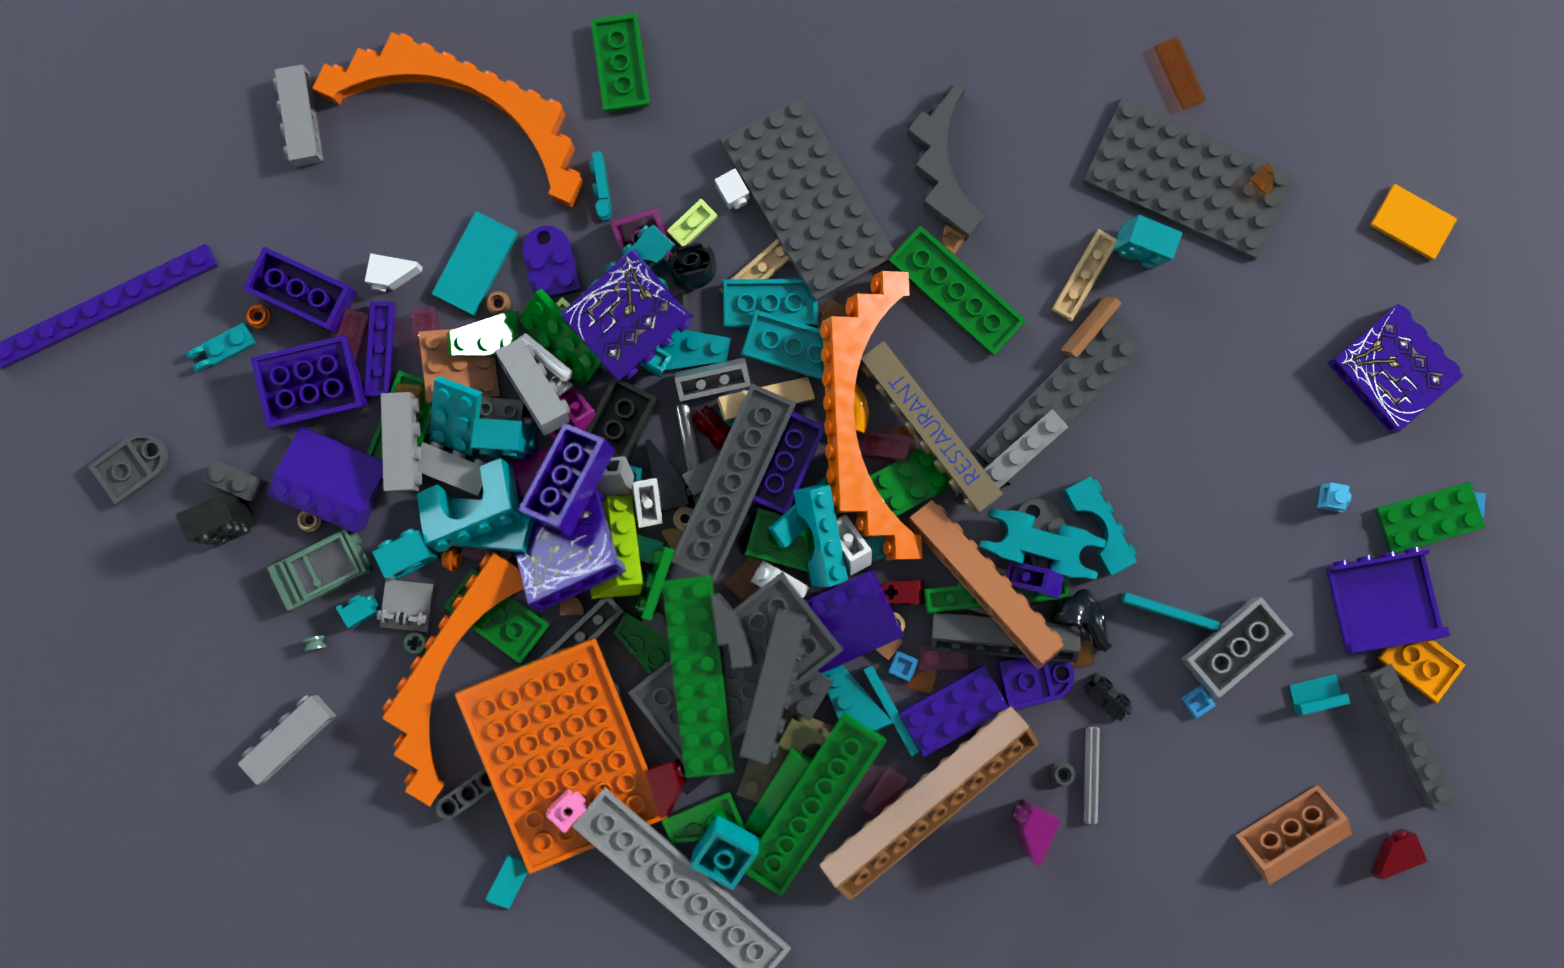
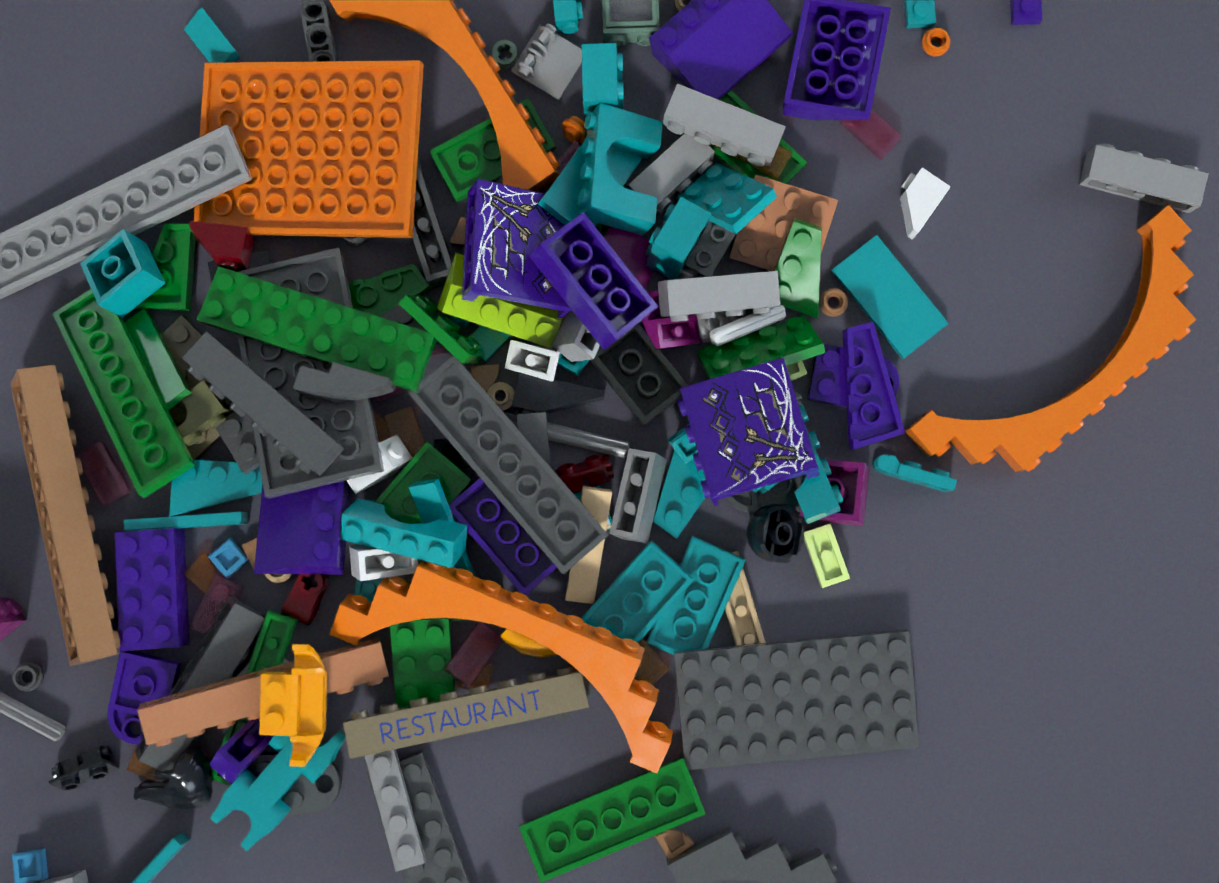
camera: 115 degrees right, 0 degrees up
(299, 290) = (944, 94): dark purple brick -> none
(380, 348) = (840, 153): dark purple plate -> none
(423, 320) = (848, 213): clear pink plate -> none
(557, 243) = (869, 392): none -> dark purple wing
(567, 799) = (246, 126): bright pink brick -> none
(620, 62) = (1049, 560): green plate -> none
(732, 189) = (843, 619): white brick -> none
(982, 553) = (296, 704): none -> light orange plate
(1087, 498) = (311, 852): teal arch -> none

